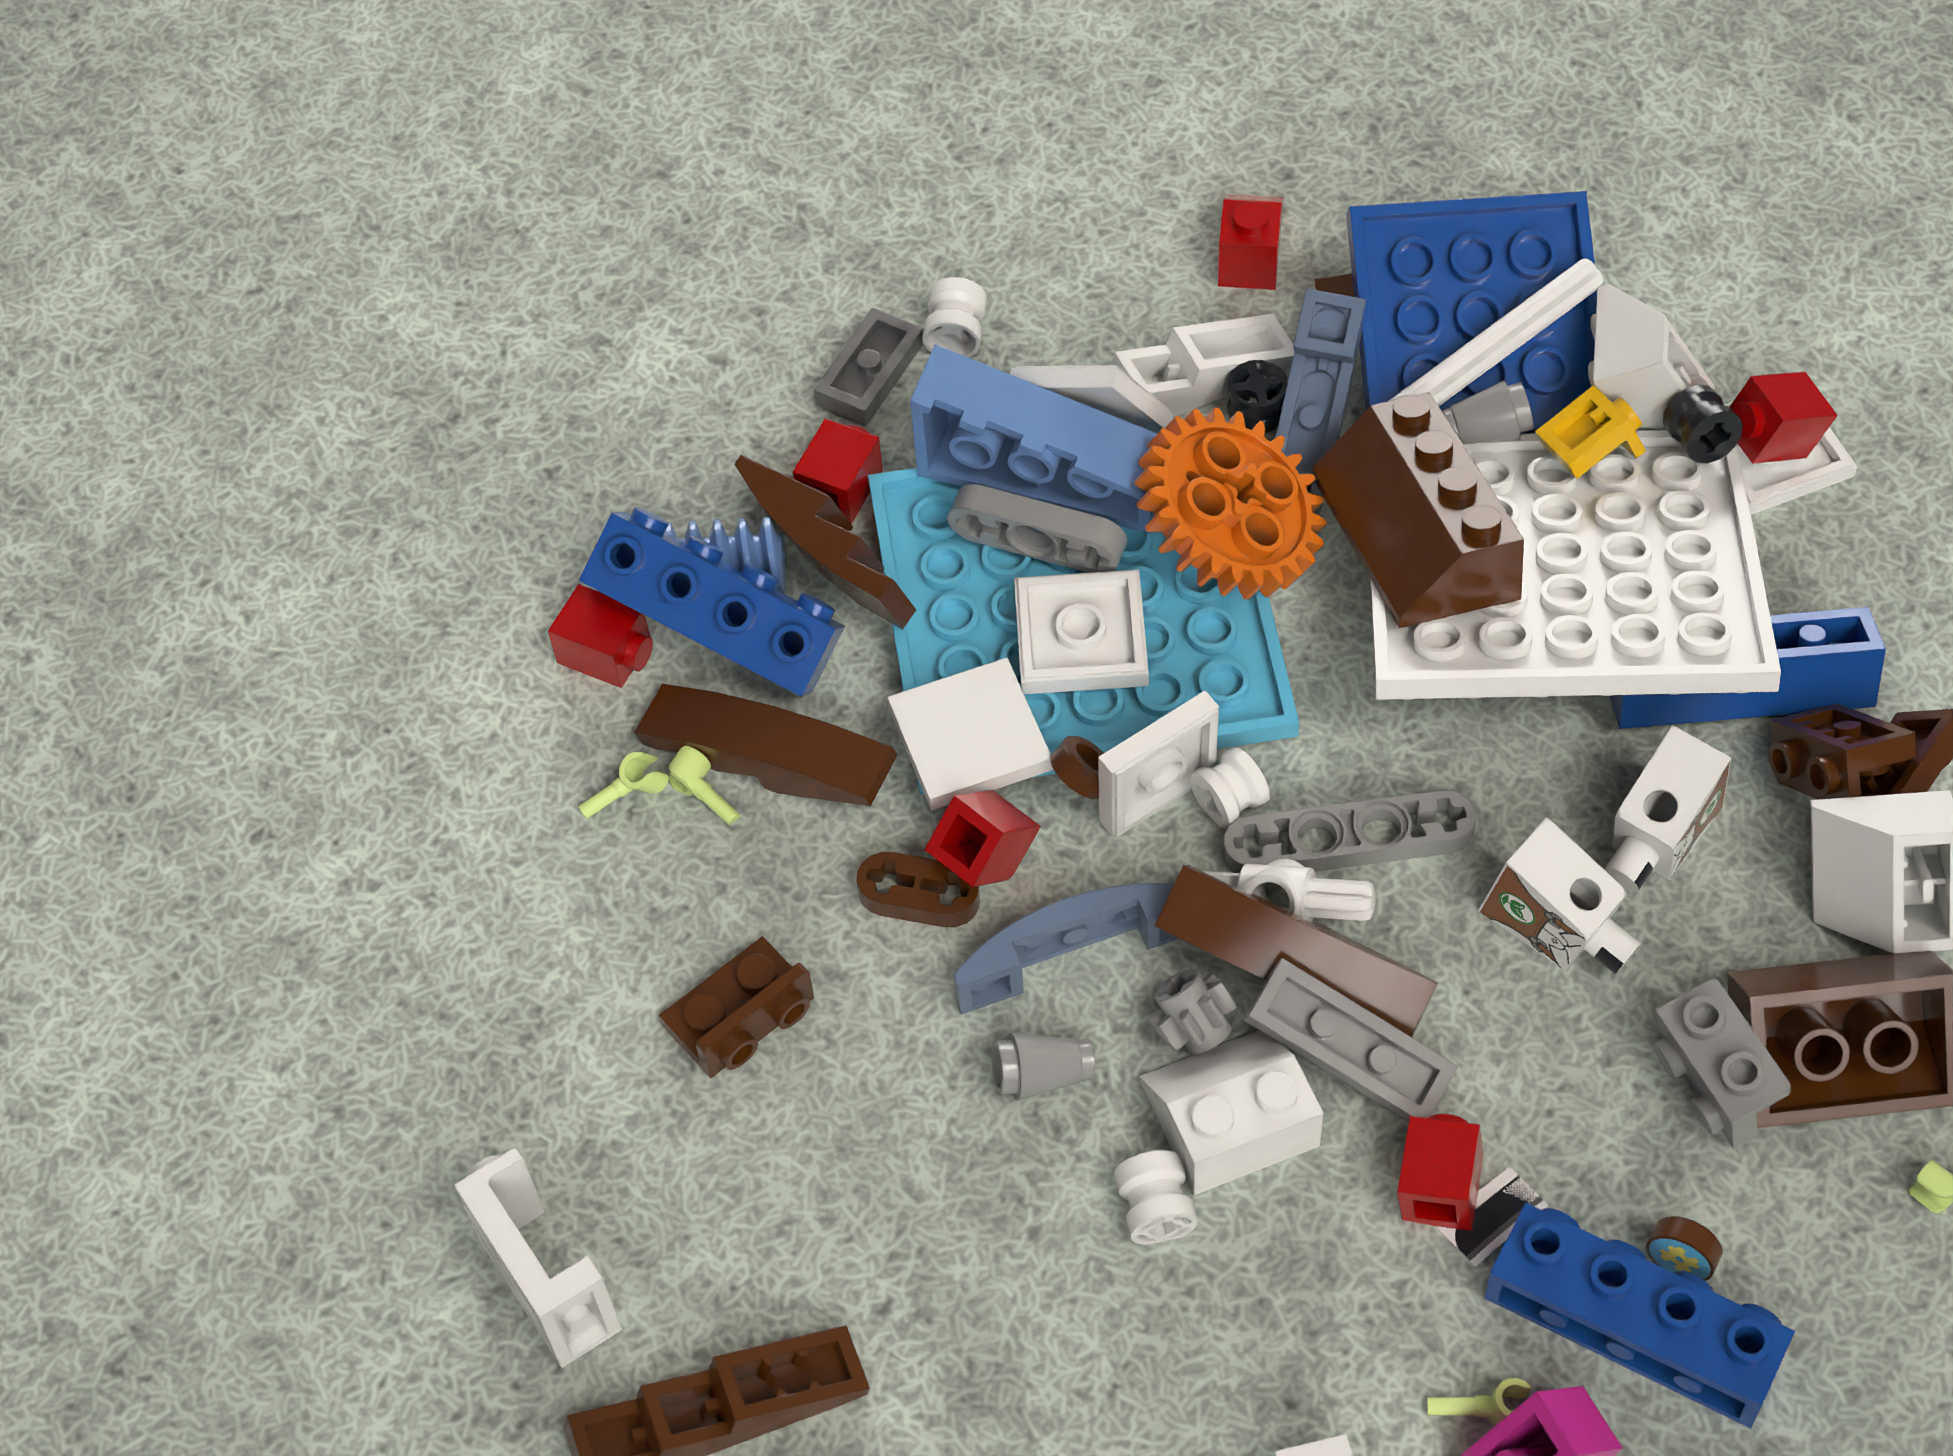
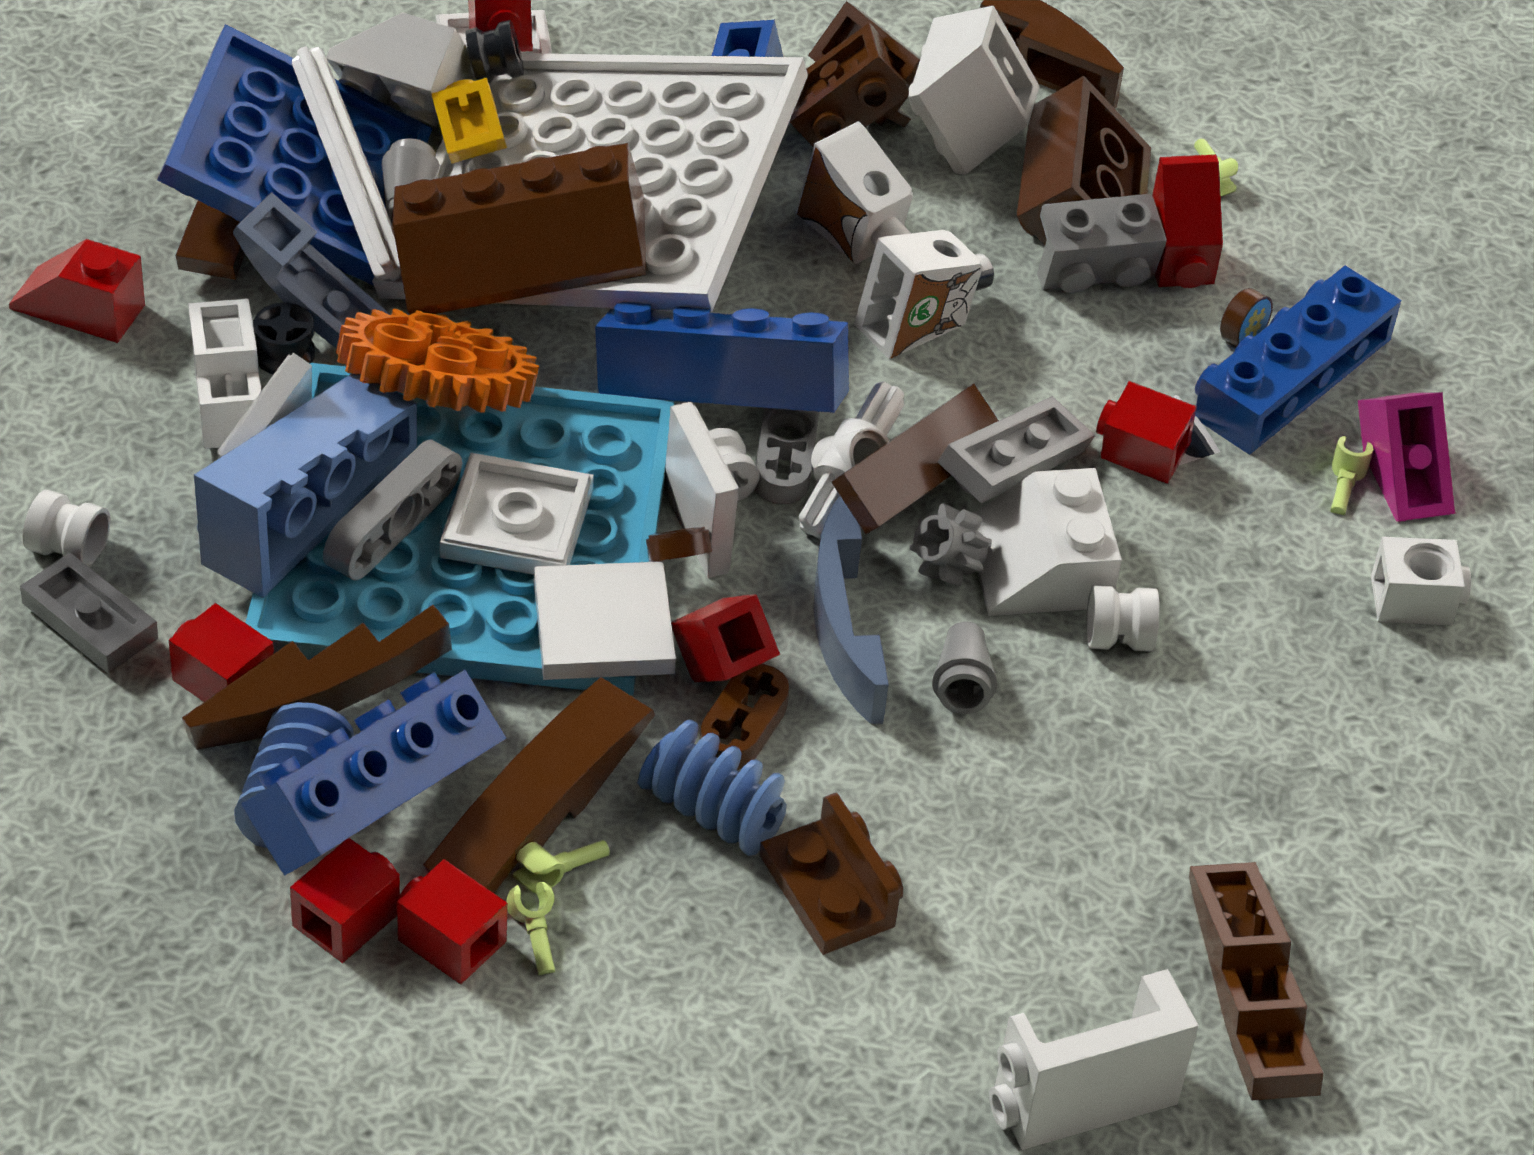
camera: 85 degrees left, 10 degrees down
(597, 717) = (451, 920): none -> red brick
(804, 879) = (714, 787): none -> medium blue piece
(1347, 745) = (723, 357): none -> blue brick
(1787, 1145) = (1191, 218): none -> red slope

